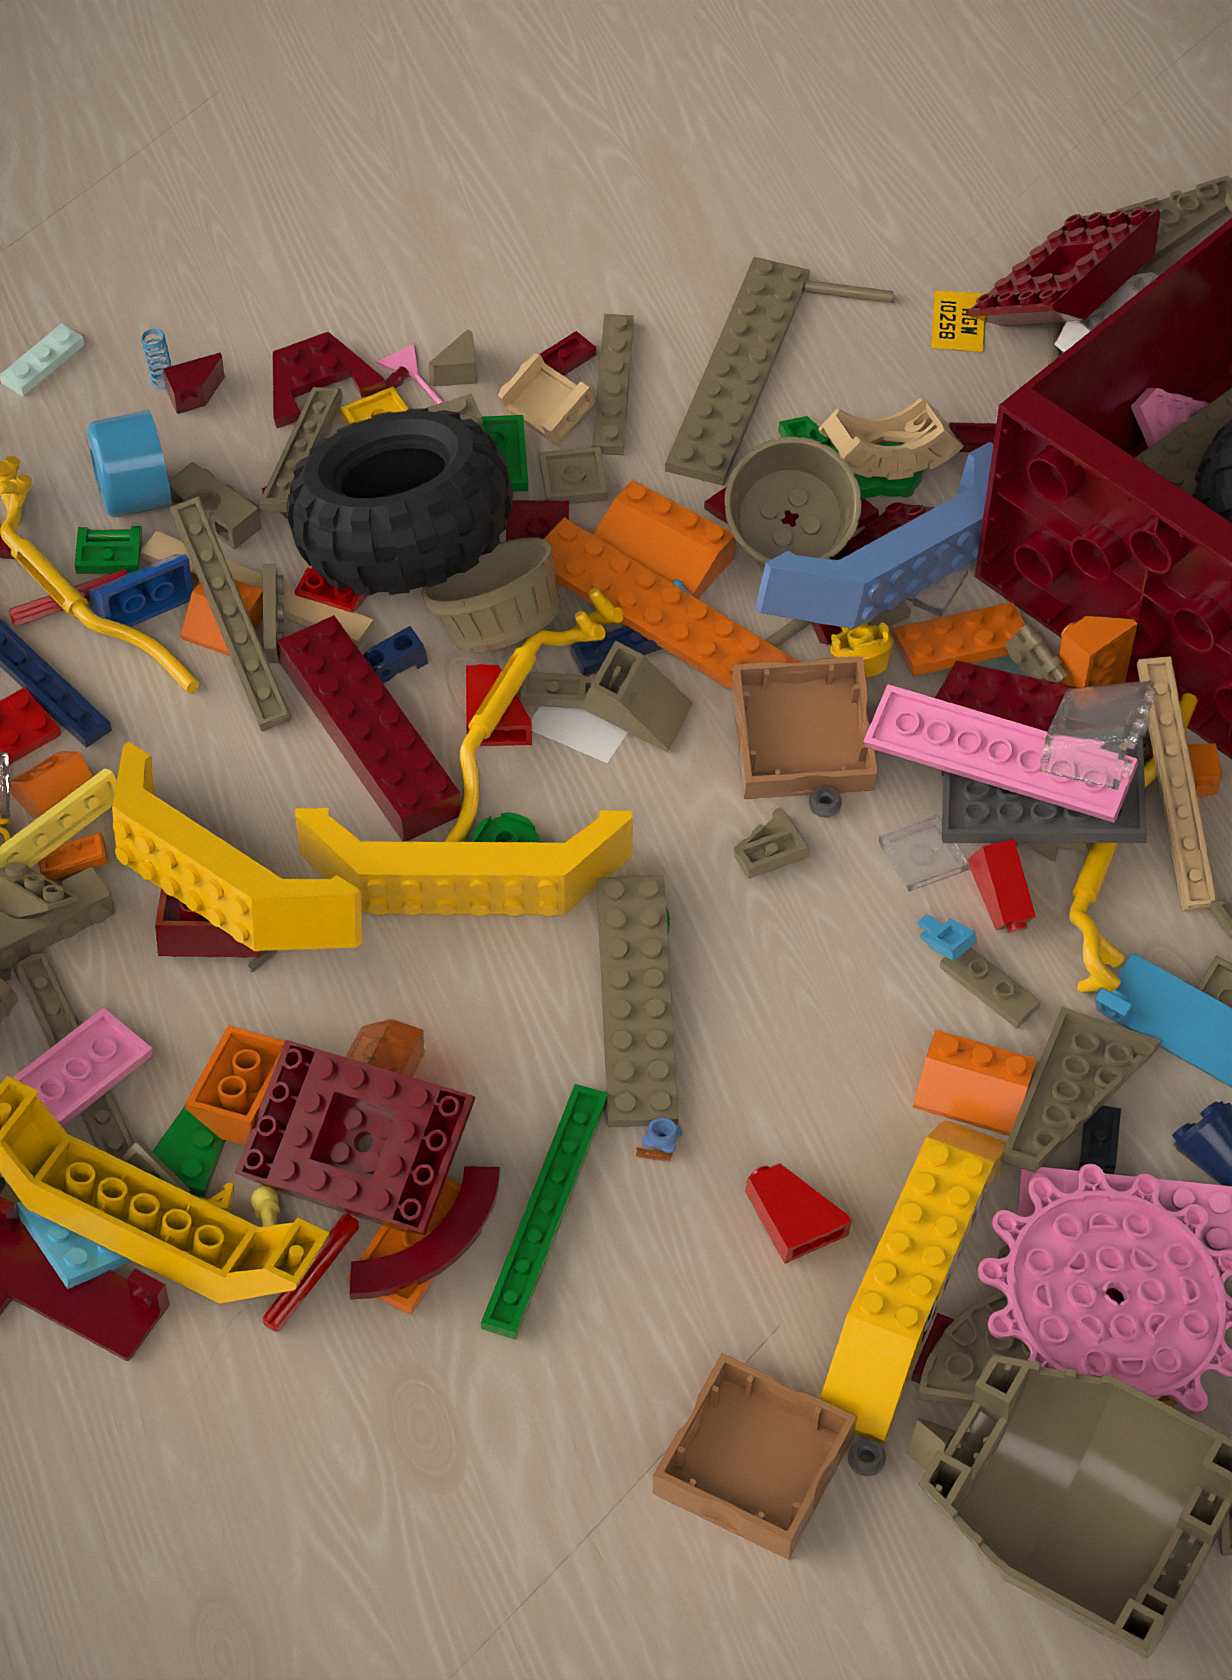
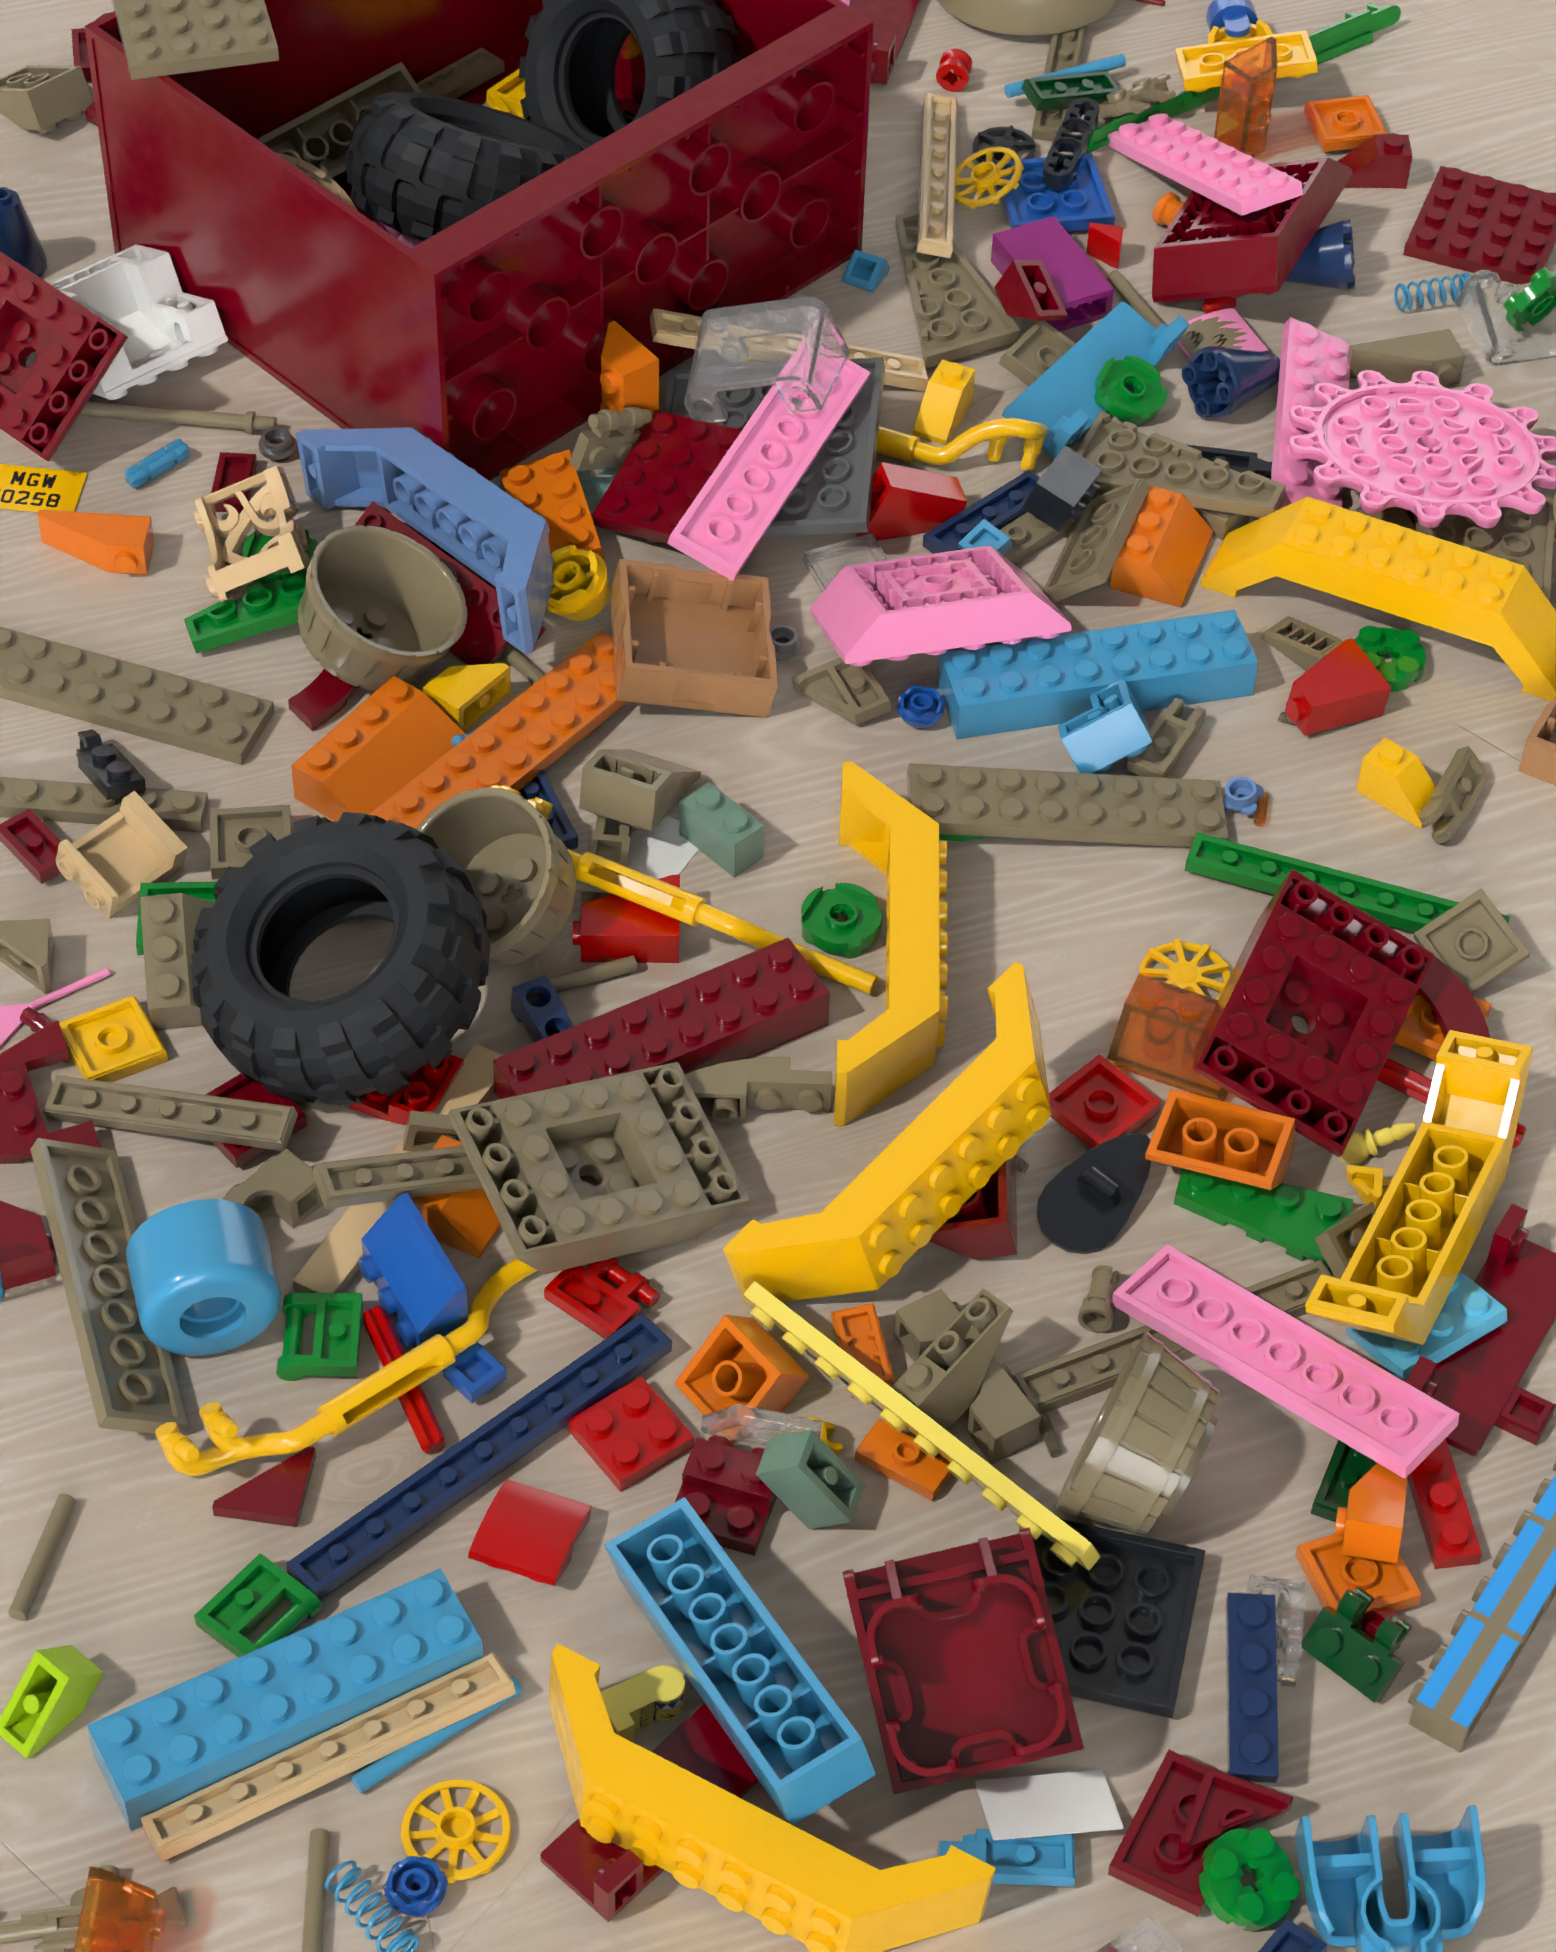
camera: 90 degrees left, 5 degrees down
(69, 634) = (475, 1372): none -> blue plate
(116, 1008) = (1097, 1306): none -> dark tan pin
(131, 694) = (596, 1303): none -> red plate
(183, 420) = (90, 1229): none -> dark tan plate
(209, 1002) = (1094, 1195): none -> black shield
(210, 630) = (631, 1131): none -> dark tan slope
(306, 1013) = (1101, 1103): none -> red plate
(320, 771) = (759, 1084): none -> dark tan slope
(444, 680) = (591, 974): none -> dark tan bar
(455, 1079) = (1185, 973): none -> yellow wheel
(472, 1292) = (1473, 942): none -> dark tan plate
(594, 758) = (721, 829): none -> sand green brick
(639, 384) = (107, 767): none -> black hinge
(670, 1304) = (1455, 794): none -> dark tan hinge
(679, 1259) = (1396, 780): none -> yellow slope
(718, 1025) = (1106, 731): none -> brick
(727, 1080) = (1170, 740): none -> dark tan hinge
(735, 590) = (469, 691): none -> yellow slope
(753, 889) = (921, 706): none -> blue plate
(800, 1027) = (1052, 678): none -> dark azure brick
(842, 1251) = (1399, 645): none -> green plate
(846, 927) = (933, 606): none -> bright pink slope
(873, 1206) = (1305, 656): none -> dark tan slope
(890, 364) = (103, 540): none -> orange slope
(967, 1024) = (1096, 541): none -> dark tan tile
(988, 385) = (156, 463): none -> dark azure axle
(1007, 952) = (997, 508): none -> dark blue plate
(1025, 995) = (1063, 489): none -> brick
(1151, 917) = (945, 402): none -> yellow slope
(1200, 1082) = (1128, 406): none -> green plate

